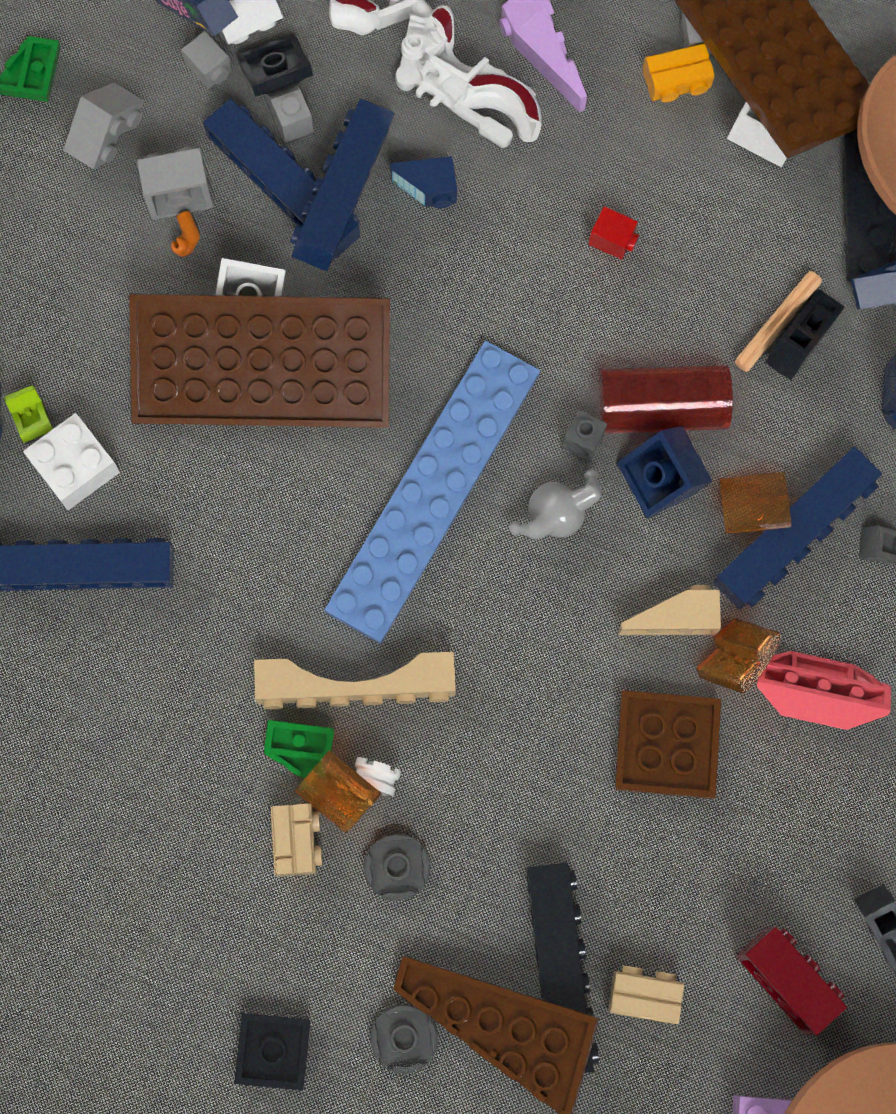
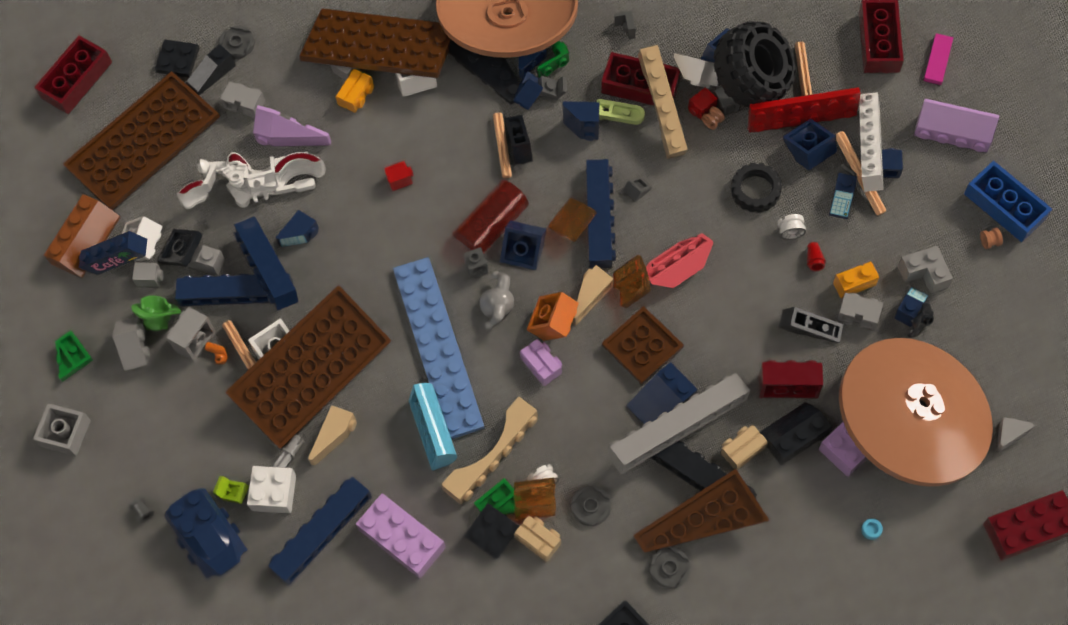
camera: 40 degrees left, 10 degrees down
(134, 438) = (289, 452): none -> light grey axle
(149, 669) = (401, 535): none -> lavender brick
(166, 114) = (155, 312): none -> bright green hat
(211, 466) = (333, 432): none -> tan slope
(218, 250) = (238, 344): none -> light nougat axle
(253, 775) = (491, 531): none -> black plate
(322, 579) = (432, 426): none -> medium azure brick
(527, 637) = (541, 362): none -> lavender brick
(598, 598) = (553, 316): none -> orange brick
(598, 887) = (677, 423): none -> light grey brick
(617, 833) = (661, 394): none -> dark blue slope
(727, 1044) = (796, 432): none -> black slope

